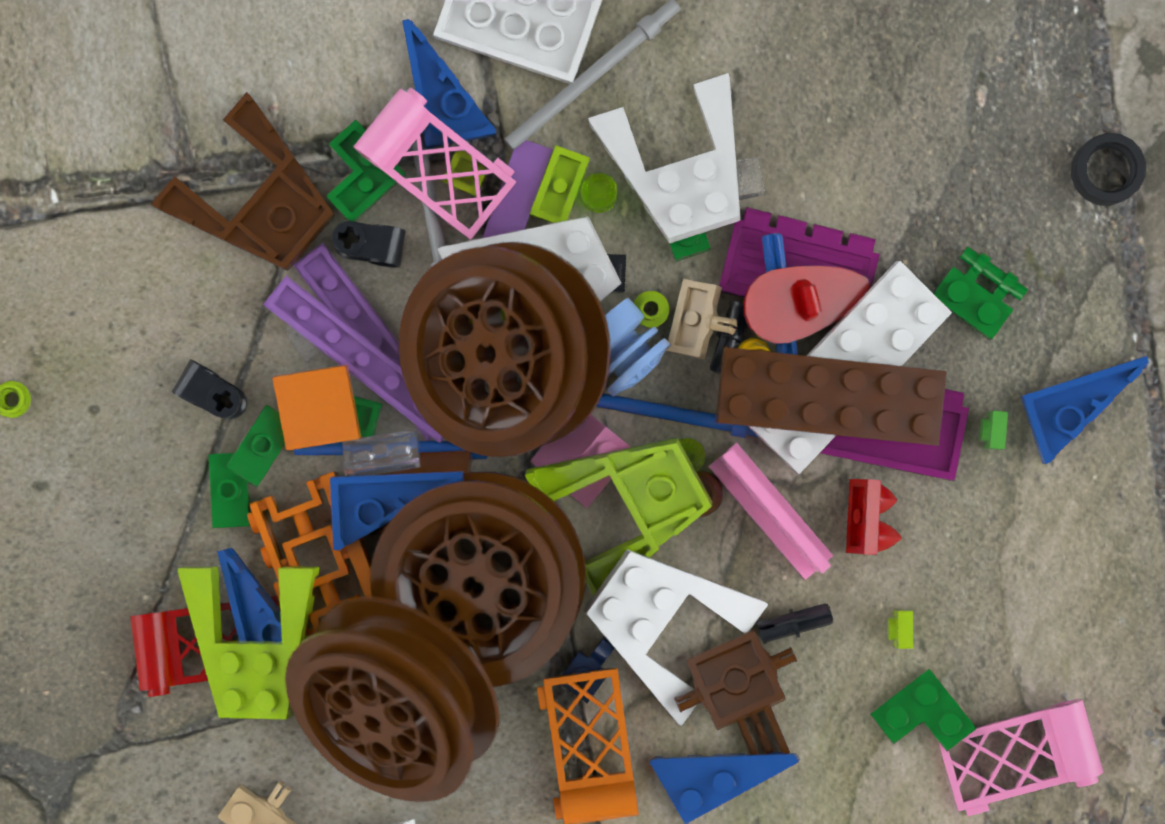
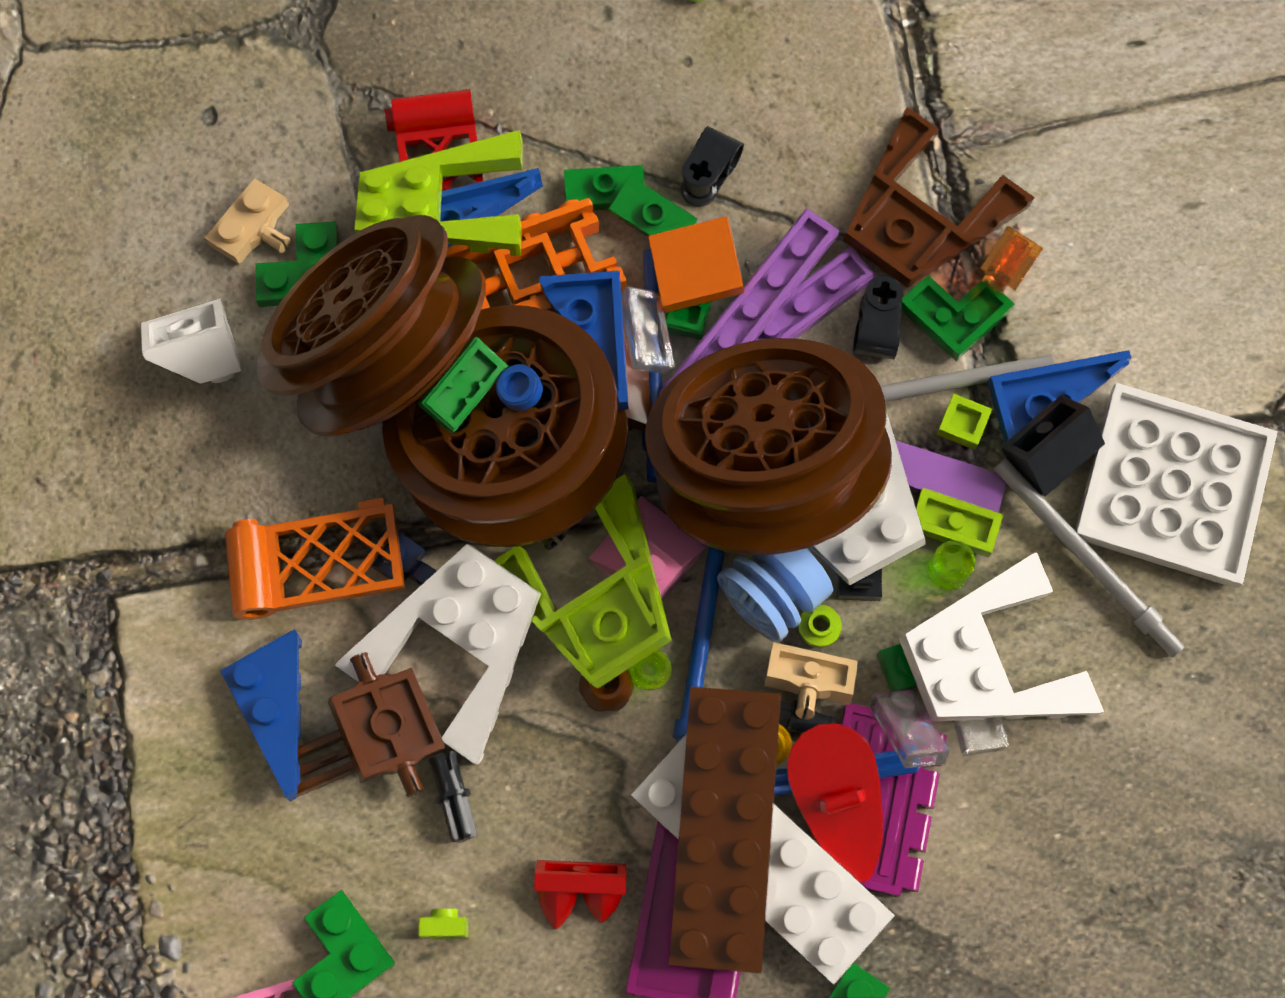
camera: 80 degrees right, 15 degrees down
(299, 757) = (277, 278): none -> green plate
(316, 122) = (1008, 260): none -> clear orange slope
(398, 129) = (1011, 345): bright pink piece -> none
(458, 614) = (463, 385): none -> green plate
(460, 566) = (519, 387): none -> blue tile
(494, 96) = (1054, 444): none -> black brick
(746, 239) = (909, 729): none -> clear plate
(771, 512) = (588, 766): bright pink fence -> none

